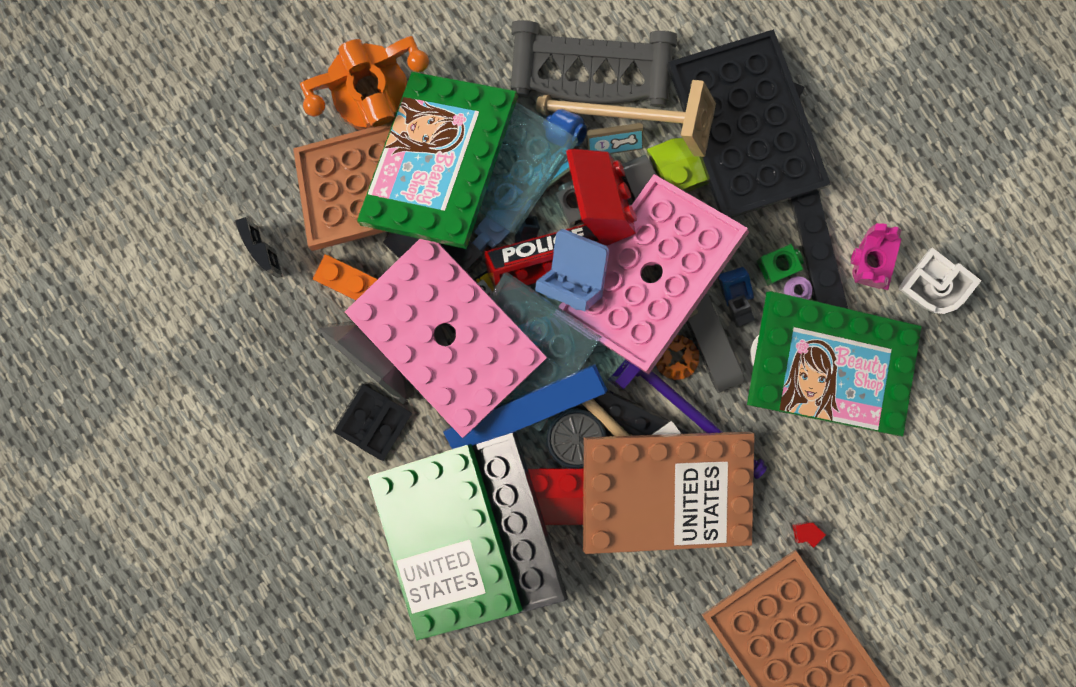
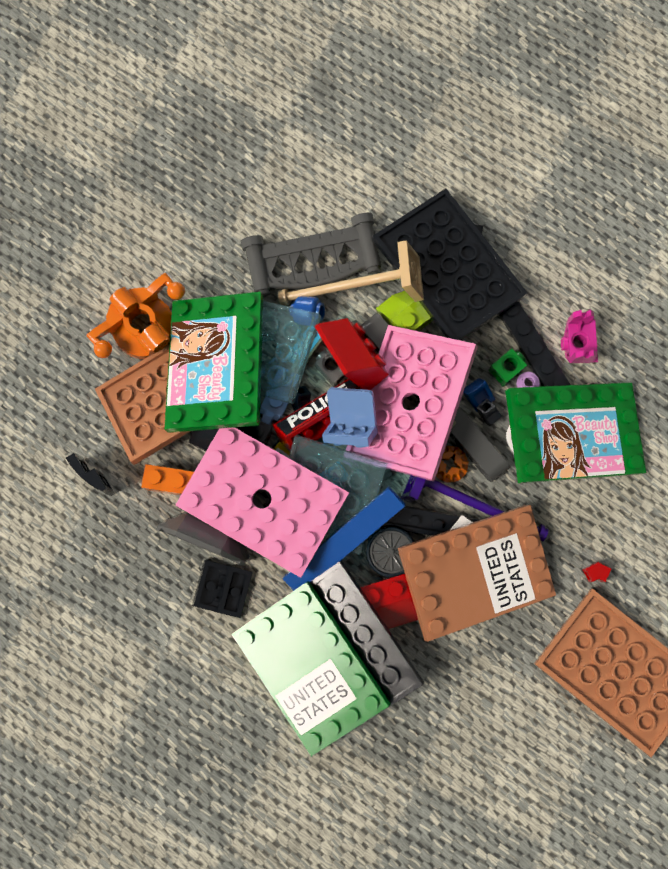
camera: 25 degrees left, 5 degrees down
(605, 418) = (411, 530): tan piece -> none
(616, 138) = (350, 306): slope -> none
(938, 283) = (634, 345): white brick -> none

